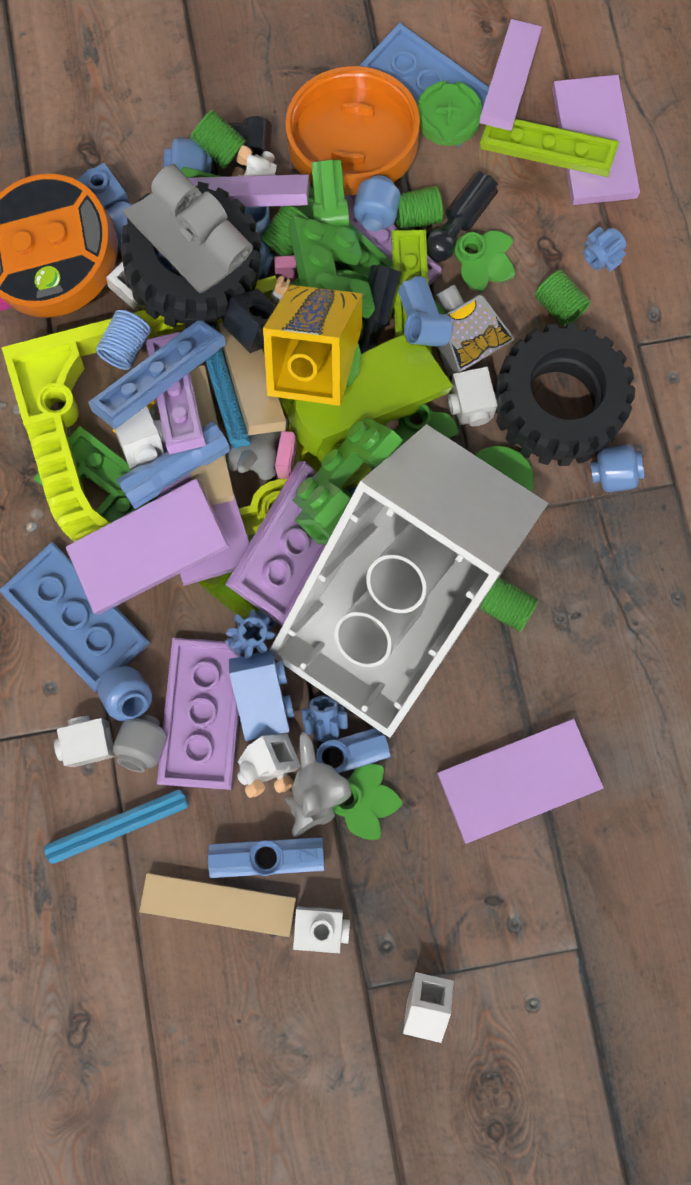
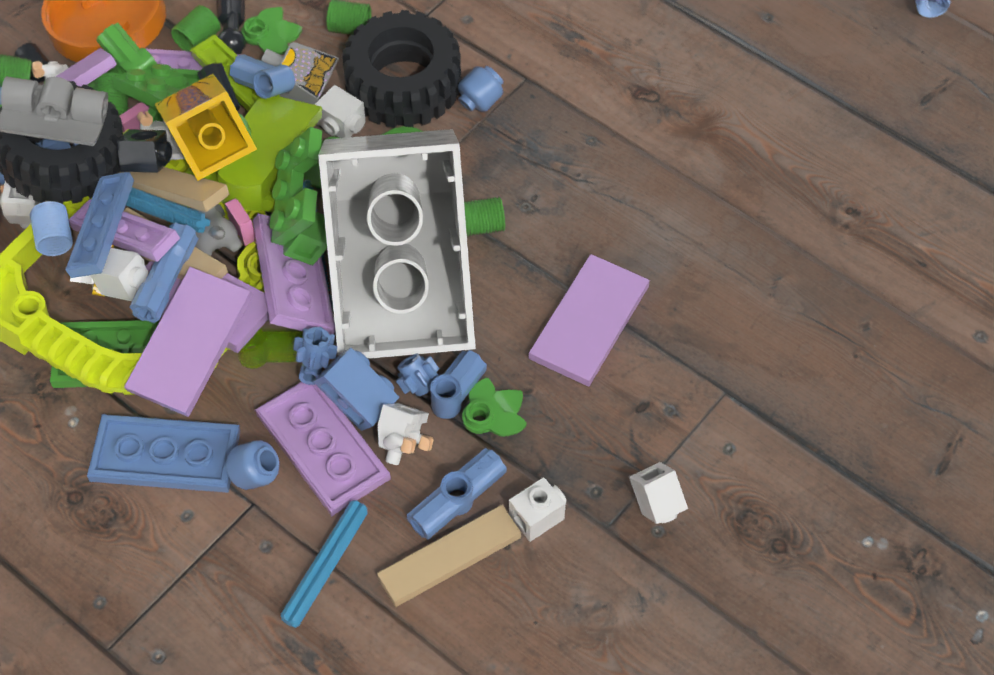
camera: 40 degrees left, 20 degrees down
(84, 741) = (250, 522): white brick -> none
(139, 743) = (293, 491): light grey head -> none
(315, 790) = (453, 414): light grey animal -> none
(377, 203) = (164, 40): medium blue head -> none

